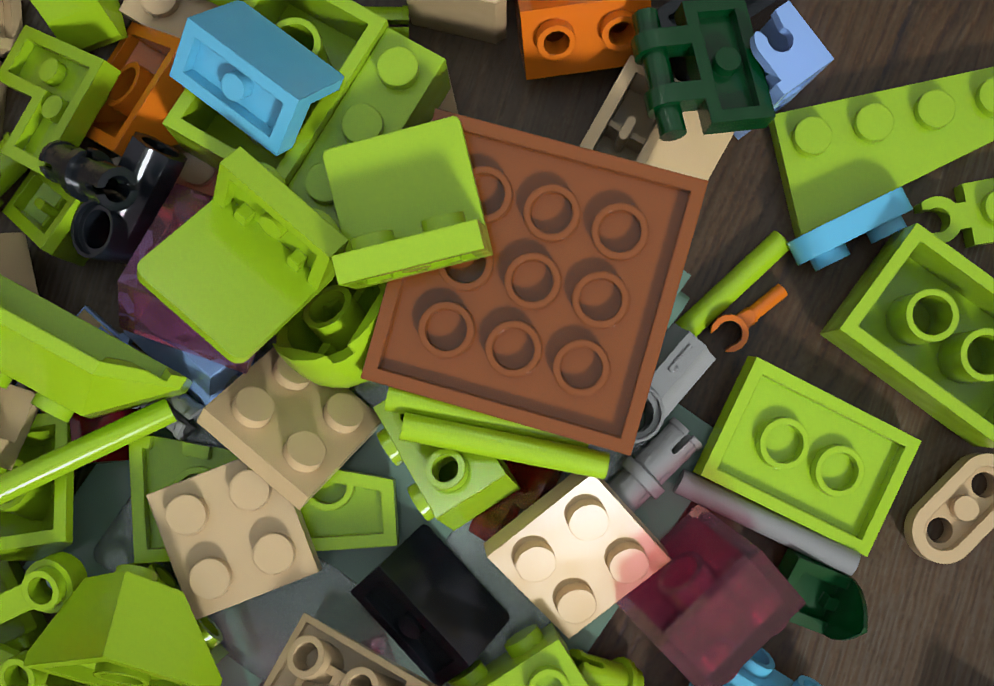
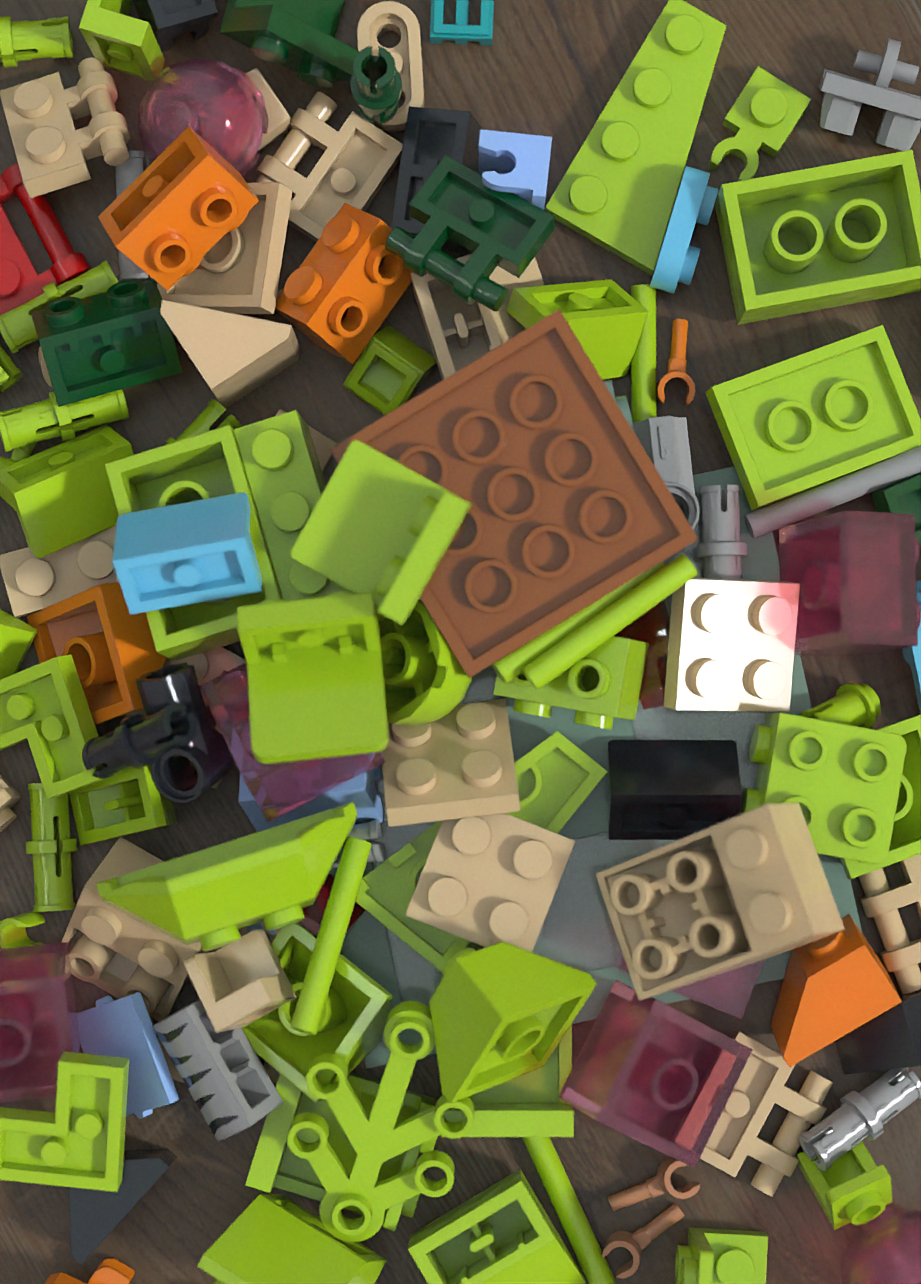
camera: 45 degrees left, 0 degrees up
(550, 109) = (389, 370): none -> lime slope
(730, 222) = (599, 314): none -> lime panel

